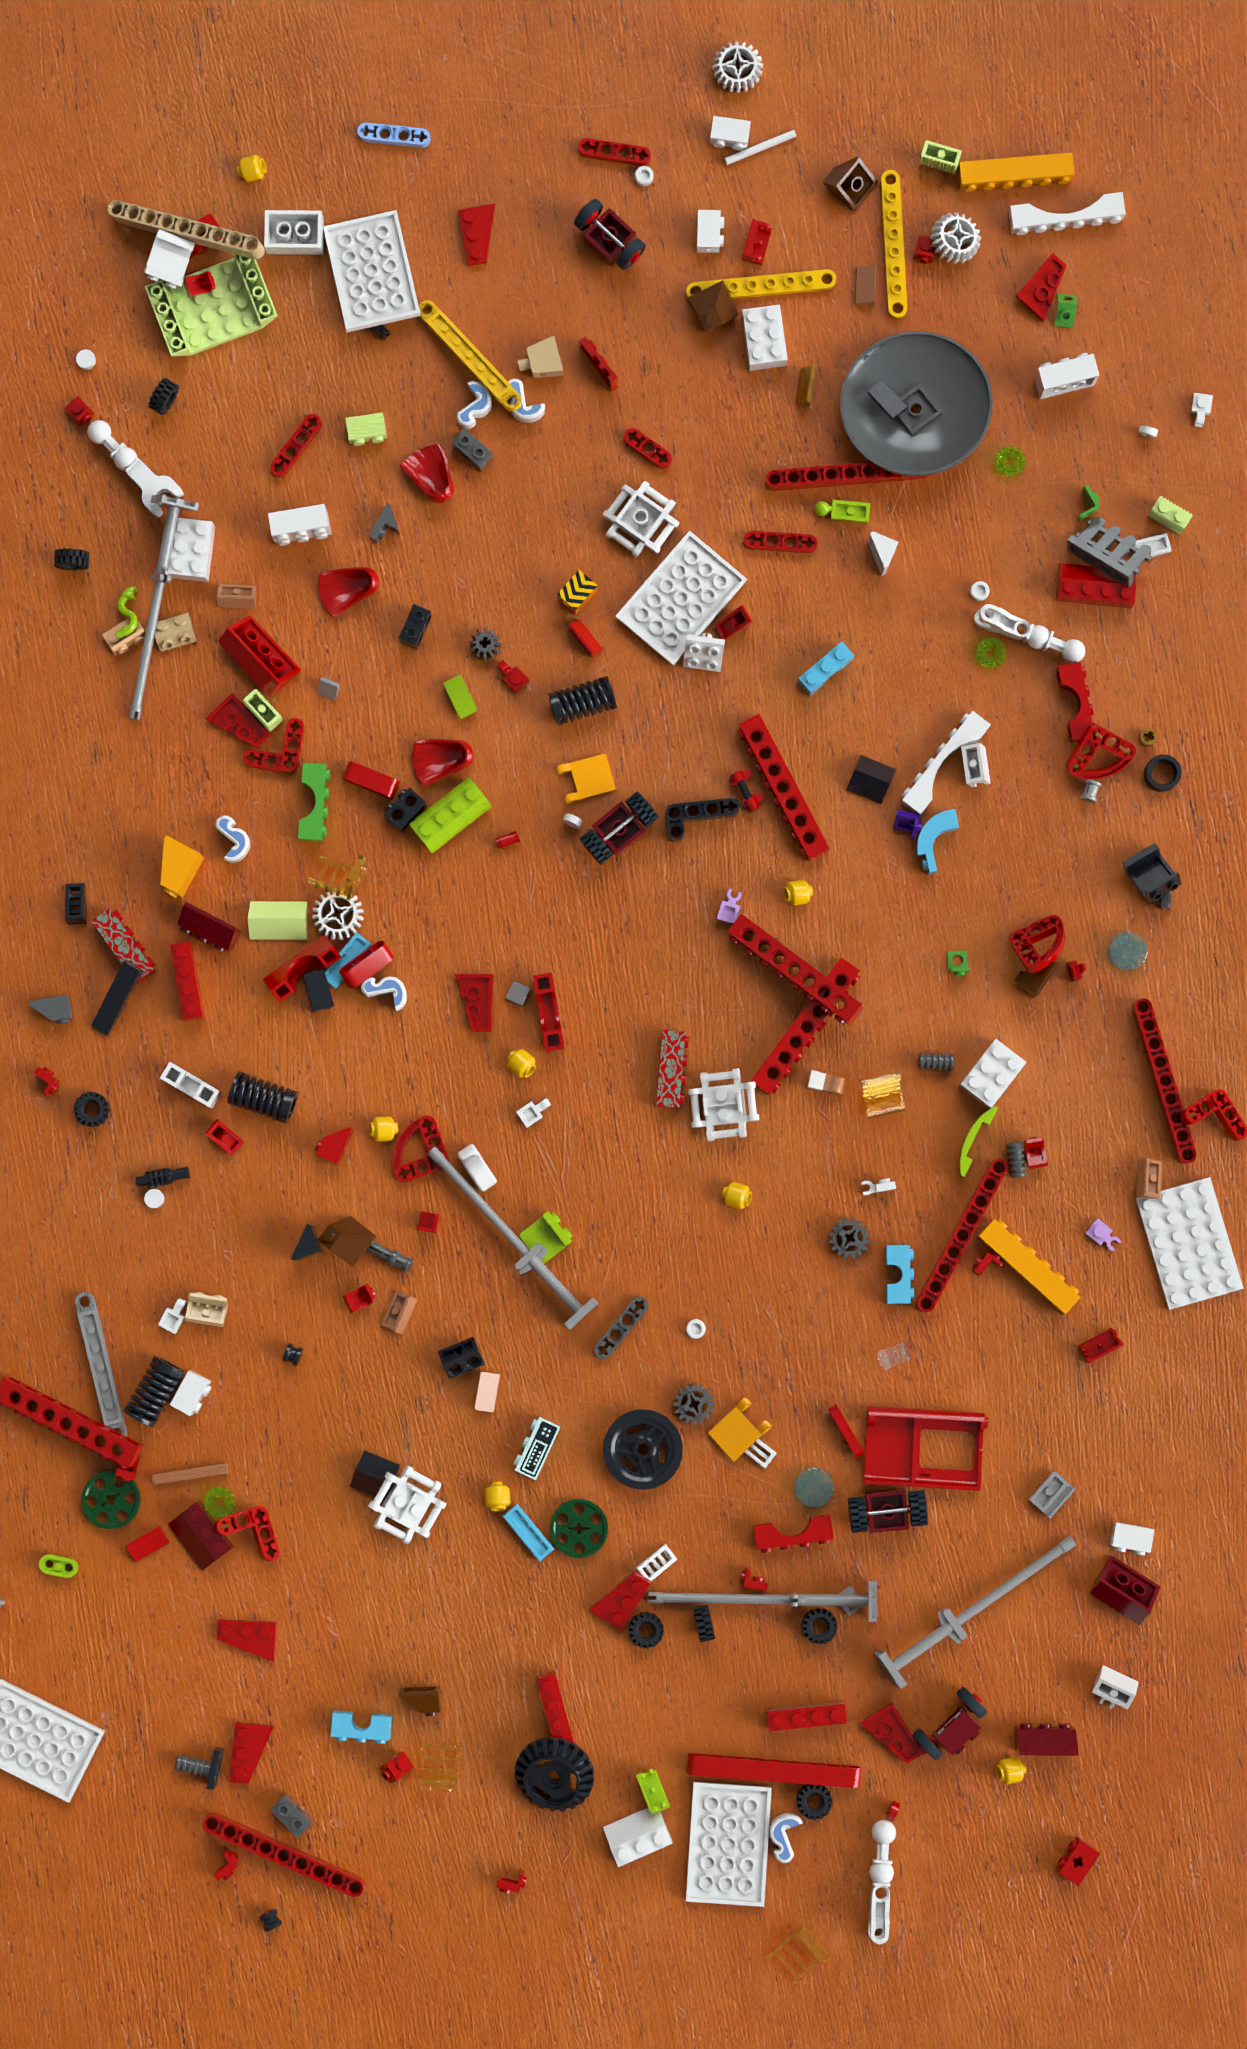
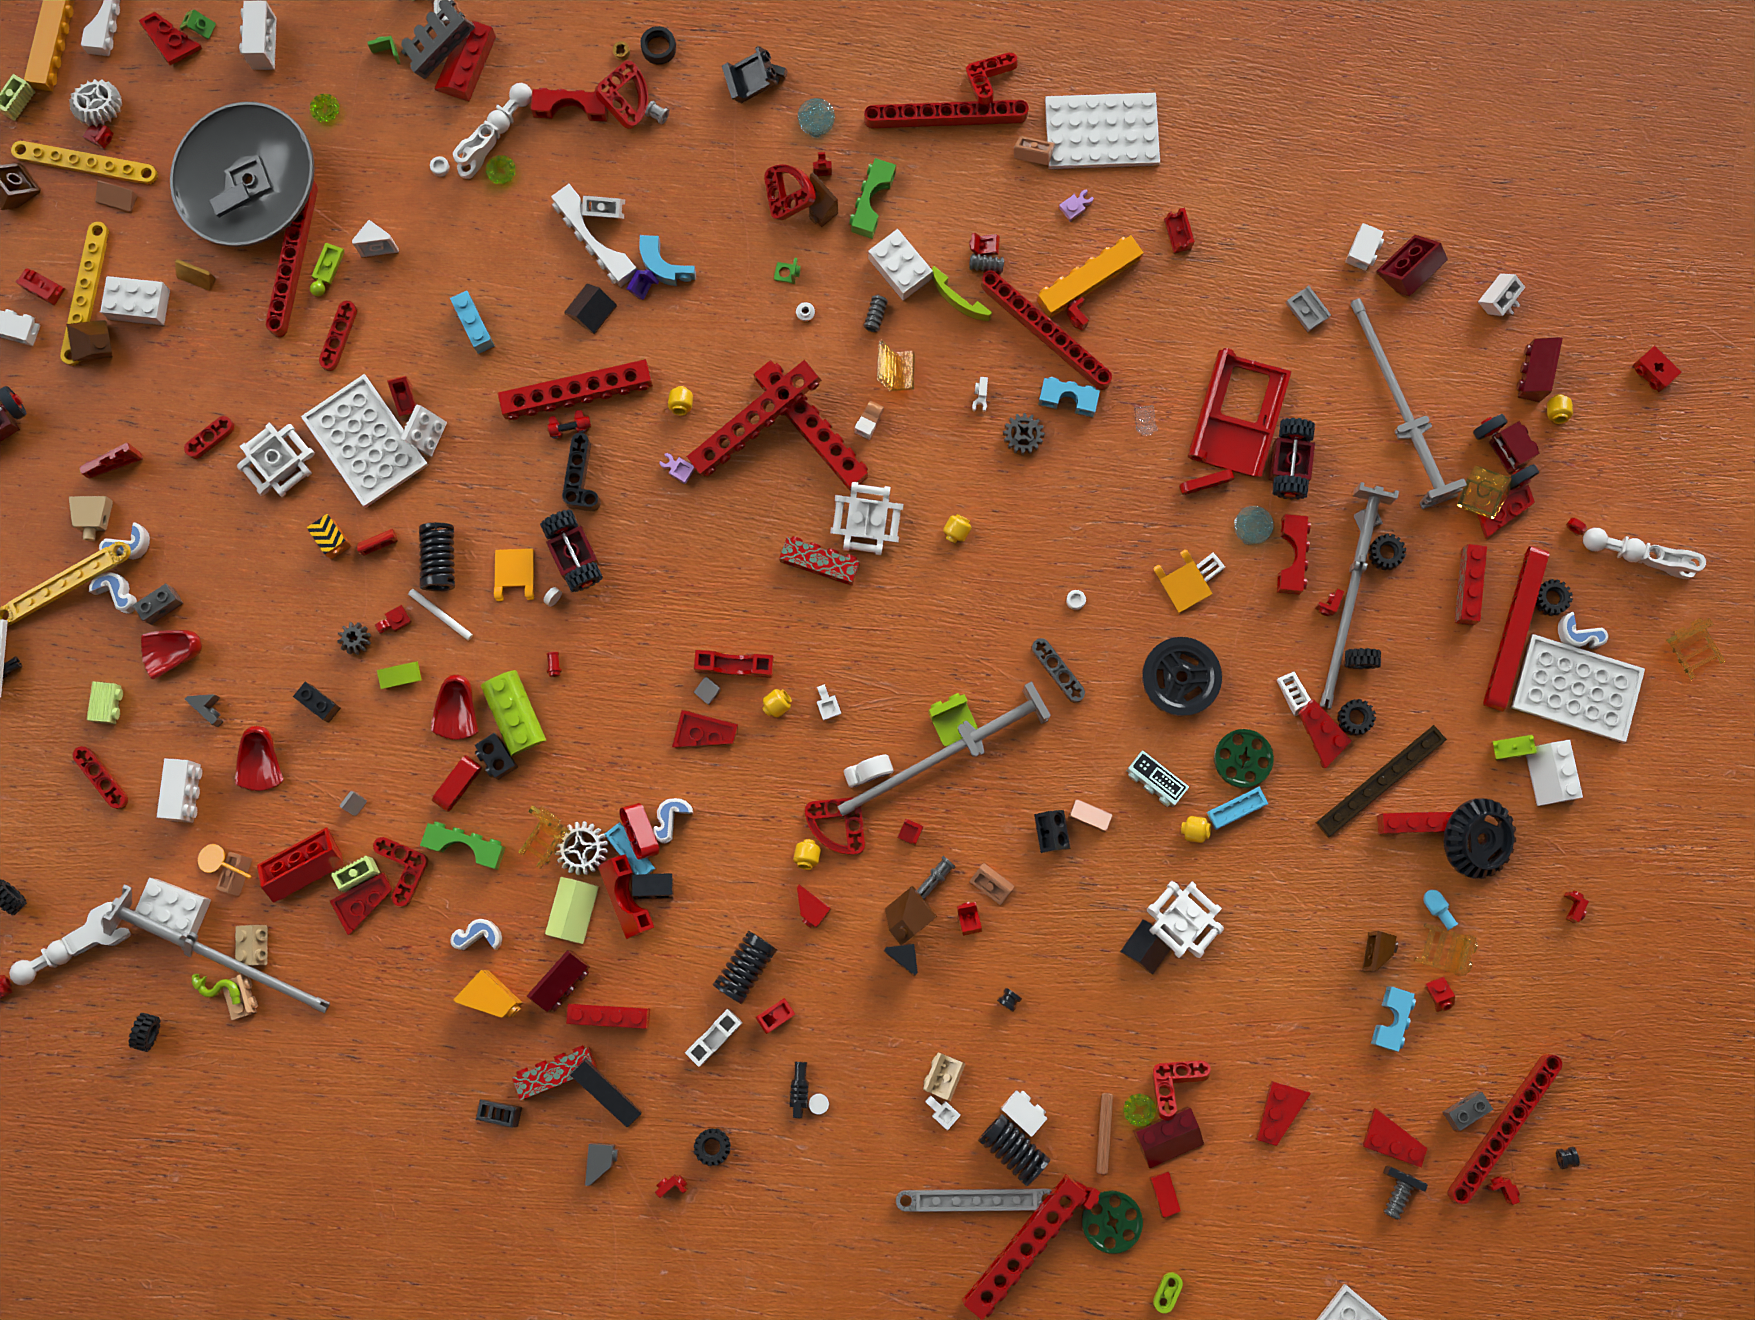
camera: 80 degrees left, 5 degrees down
(244, 572) = (213, 857): none -> light orange piece
(479, 1748) = (1439, 907): none -> medium azure arm
(529, 719) = (440, 614): none -> white bar
(589, 1667) = (1380, 781): none -> dark brown tile
(685, 1407) = (1140, 619): dark grey gear -> none
(901, 1710) = (1485, 492): none -> clear yellow slope
(916, 996) = (805, 317): none -> white plate
(1080, 1031) = (880, 177): none -> bright green arch

